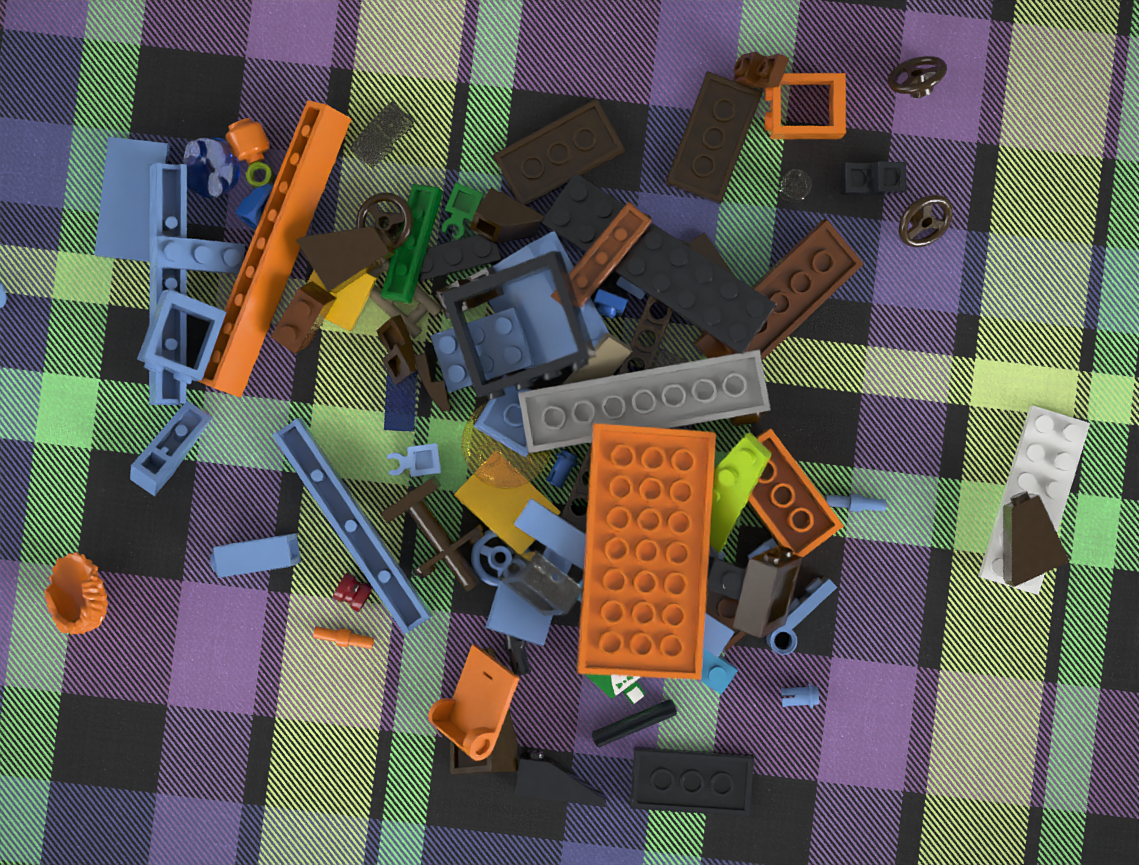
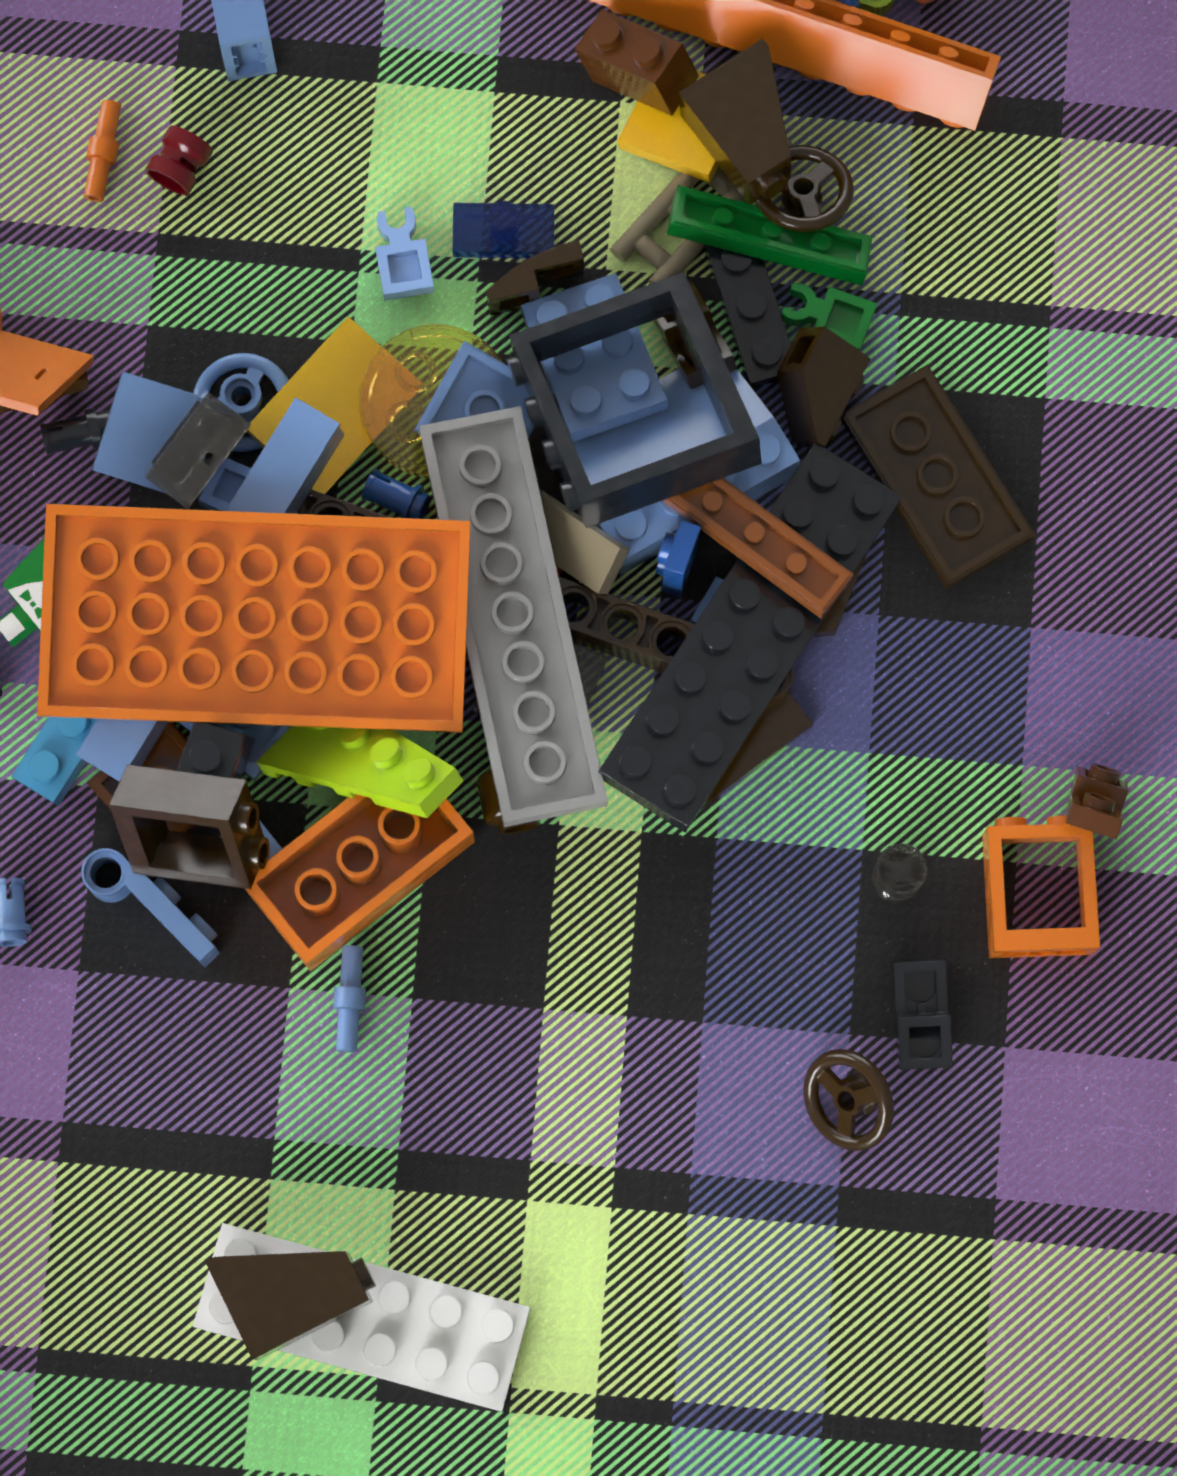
camera: 90 degrees right, 10 degrees down
(352, 525) = (289, 157): medium blue tile -> none
(380, 134) = (951, 178): clear smoke slope -> none
(400, 356) = (575, 220): dark brown slope -> none
(437, 535) = (327, 254): dark brown piece -> none
(713, 138) = (978, 736): dark brown tile -> none
(797, 286) = (717, 877): reddish brown plate -> none
(919, 81) = (1097, 1083): dark brown piece -> none

